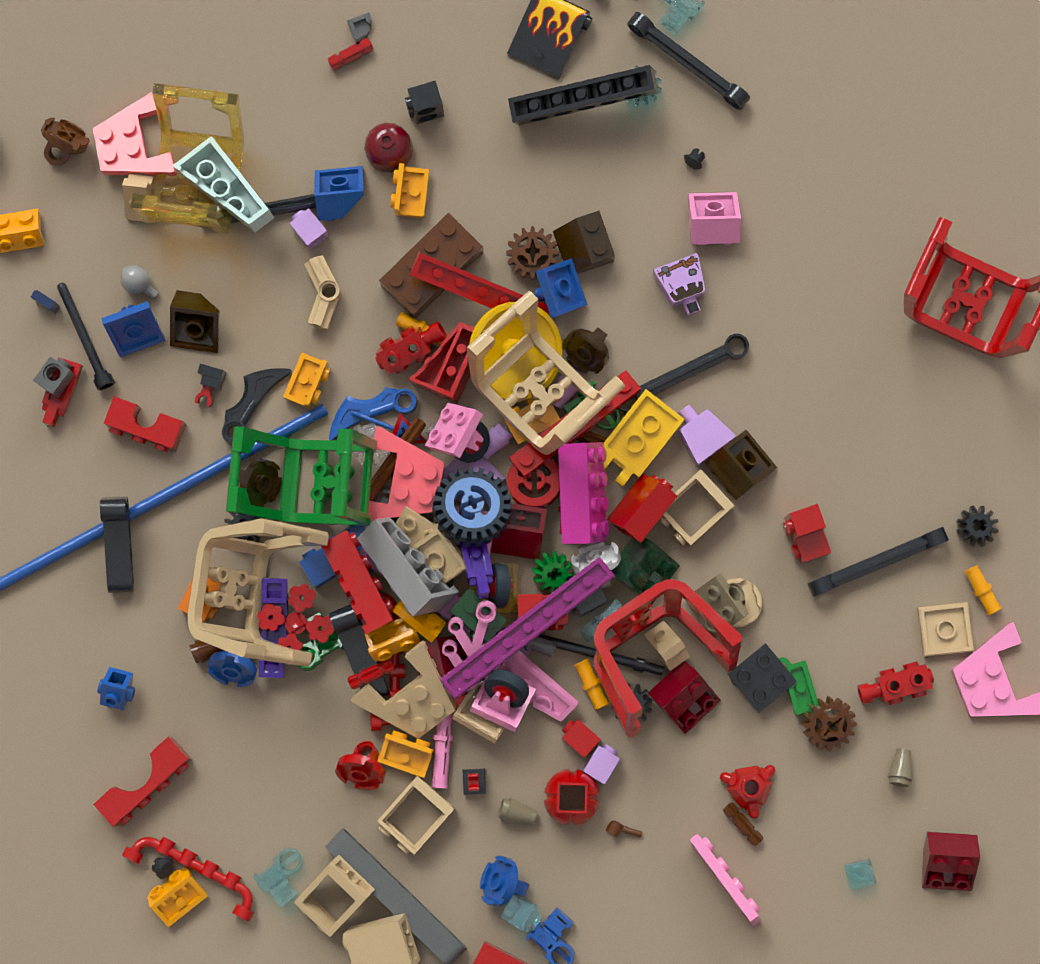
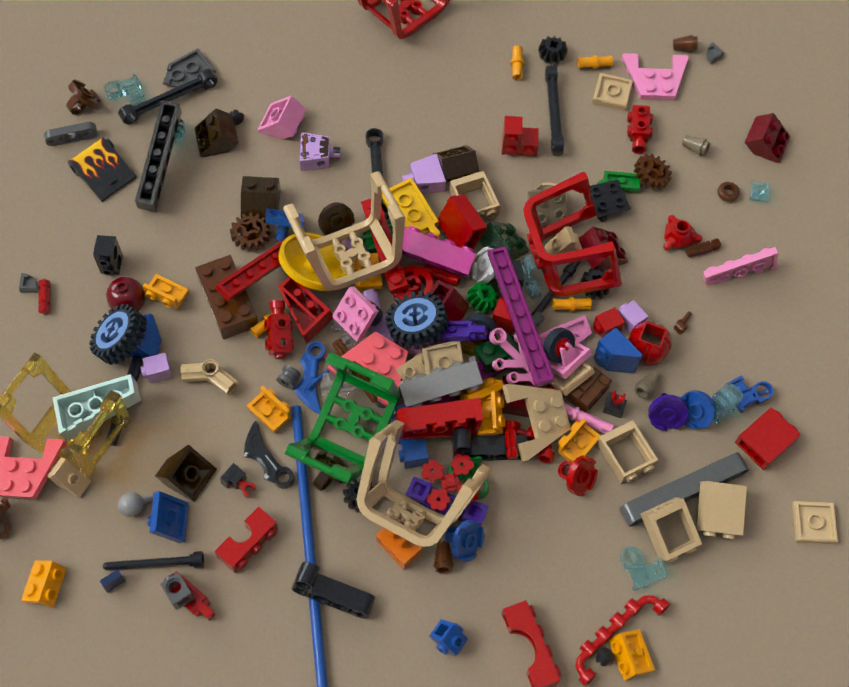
camera: 75 degrees left, 20 degrees down
(323, 156) = (118, 334): none -> black wheel
(357, 384) = (288, 377): none -> dark grey wheel
(479, 748) = (590, 391): none -> reddish brown brick
(484, 848) = (668, 412): none -> dark purple tile
(536, 759) = (617, 353): none -> blue slope
(656, 147) = (216, 133): none -> dark brown slope
(743, 64) = (186, 68): none -> dark grey tile
(834, 835) = (730, 186): none -> reddish brown piece
(936, 486) = (517, 62): none -> light orange pin

